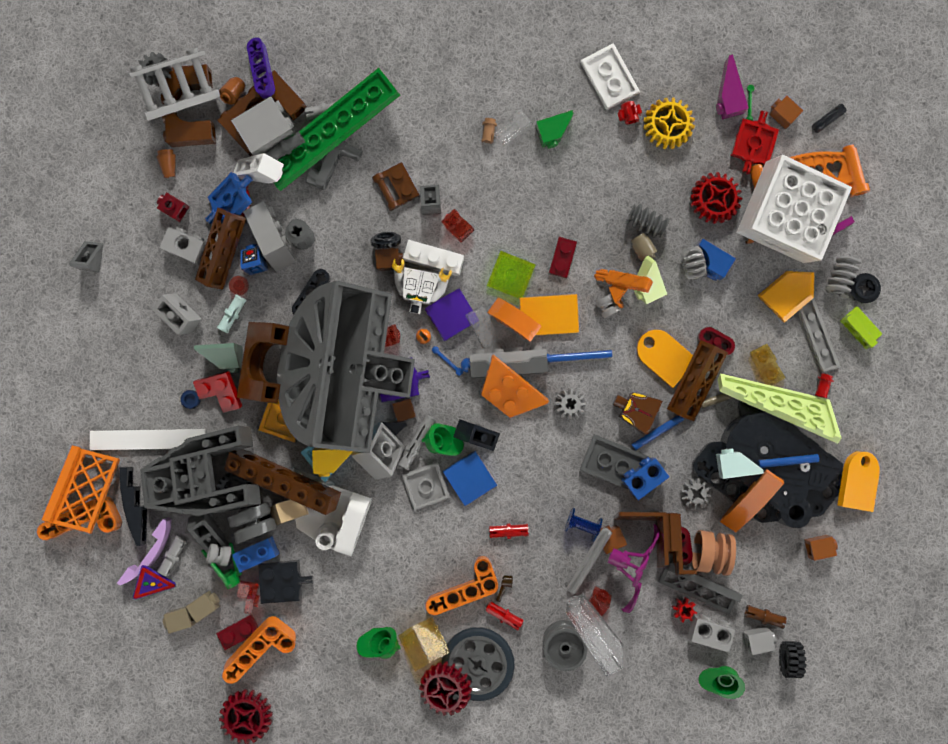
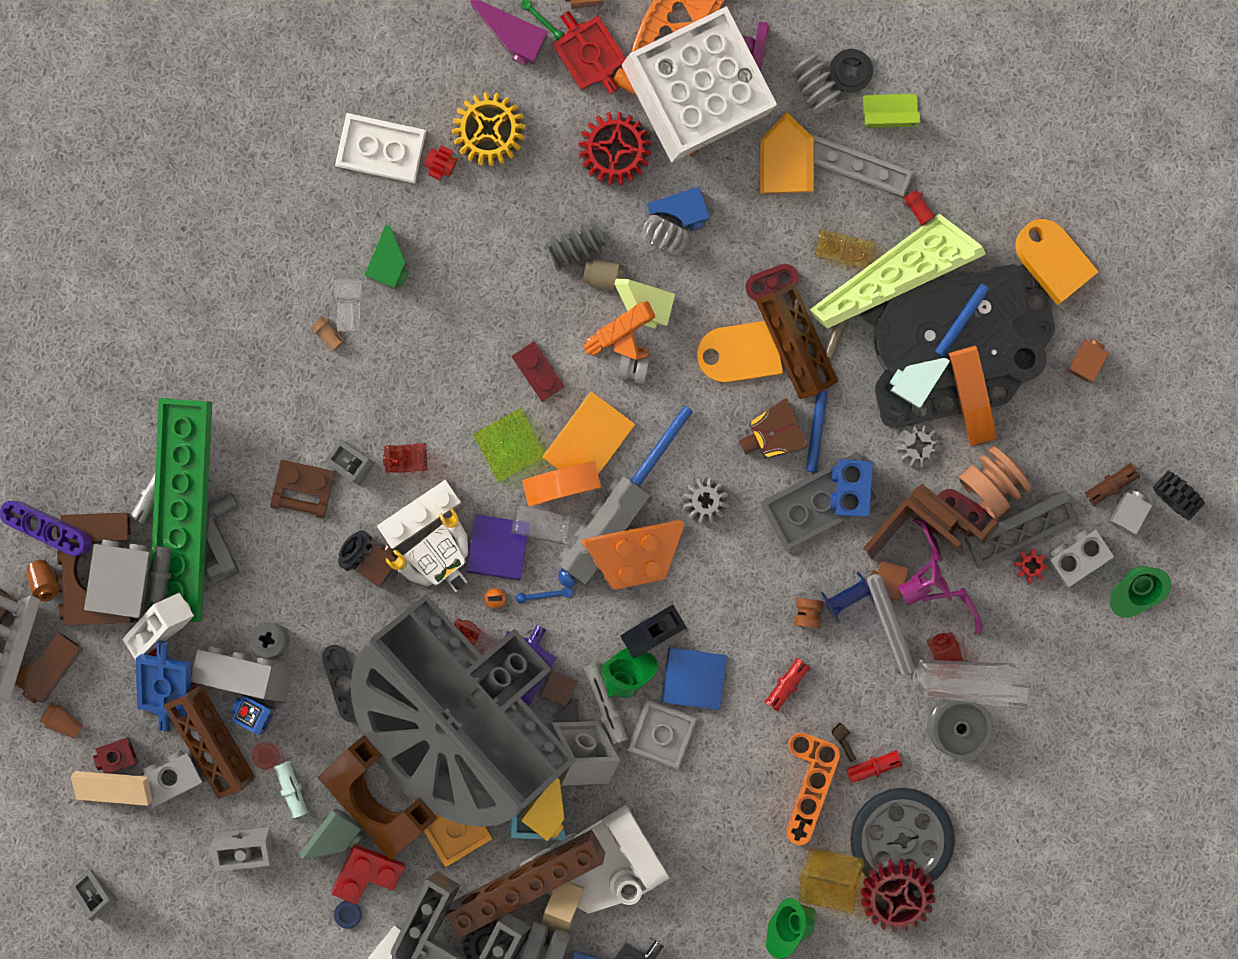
camera: 50 degrees left, 0 degrees up
(152, 218) = (111, 788): none -> tan tile
(557, 510) = (808, 613): none -> dark orange wheel

